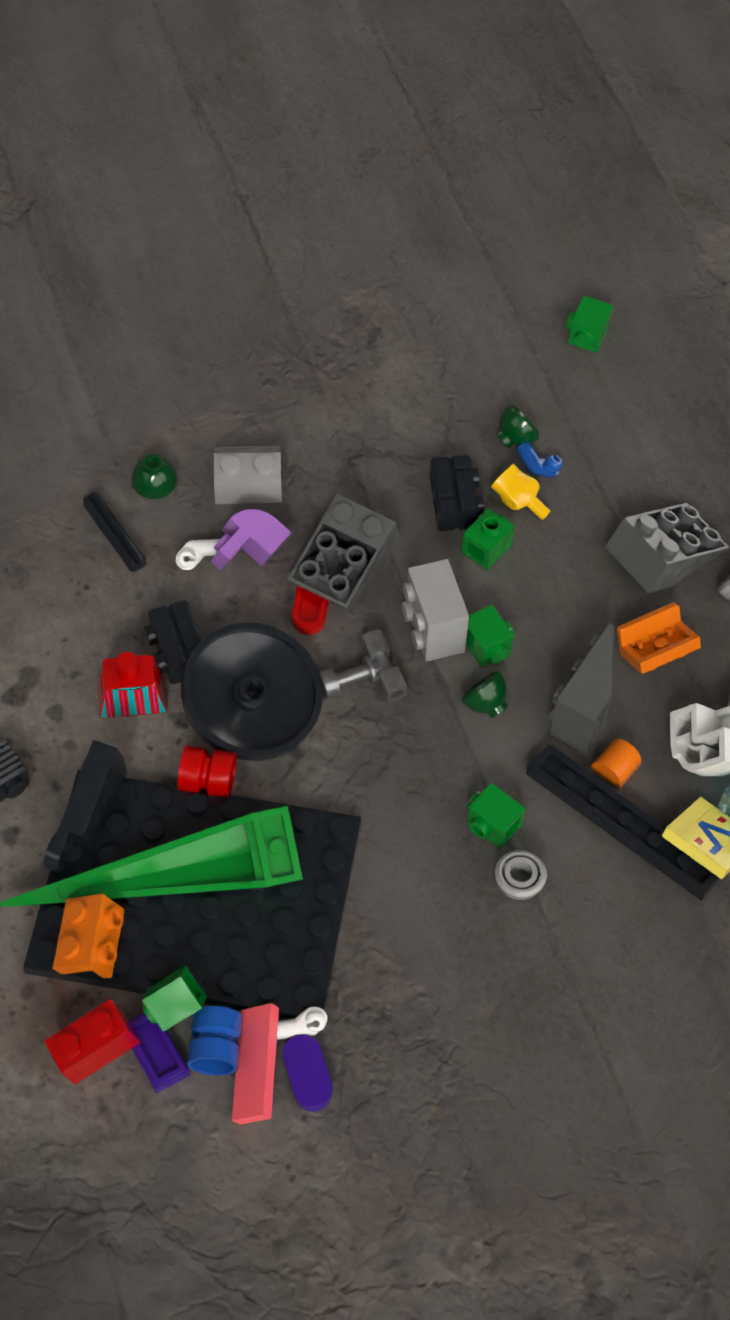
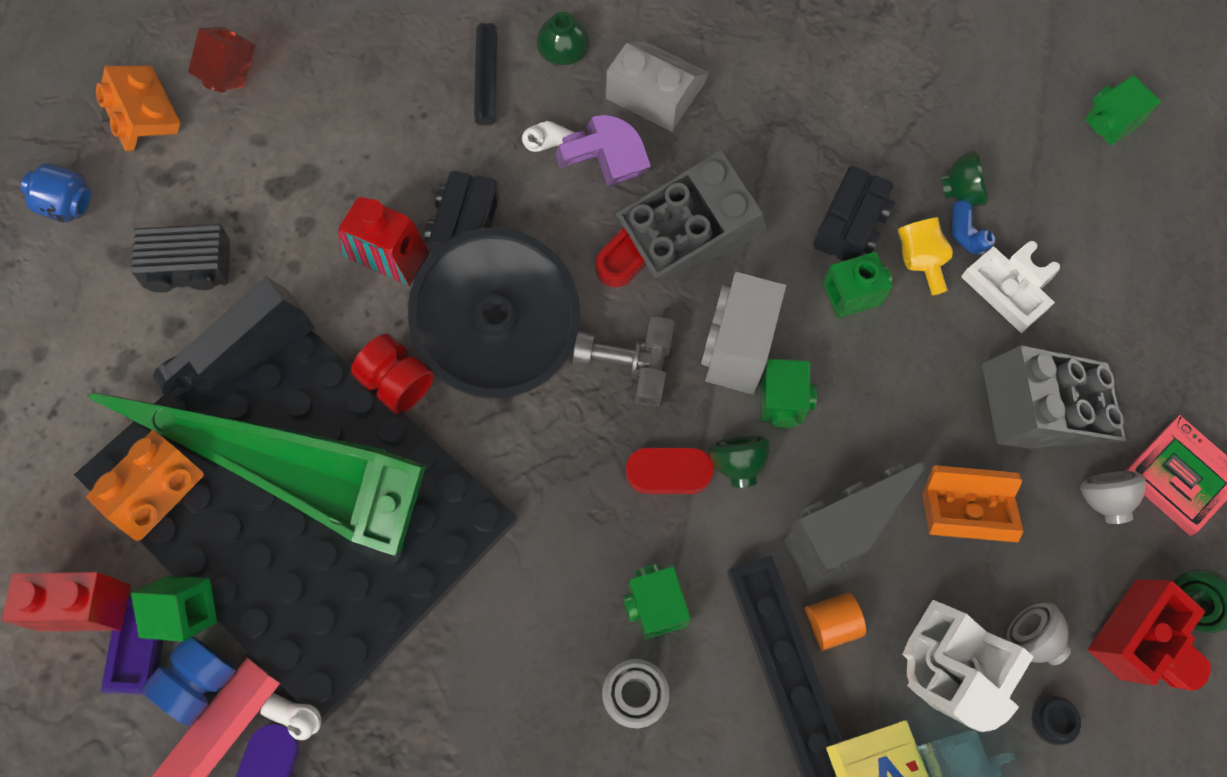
camera: 30 degrees right, 10 degrees up
(442, 731) = (669, 471): none -> red tile
(592, 483) = (1013, 284): none -> white plate

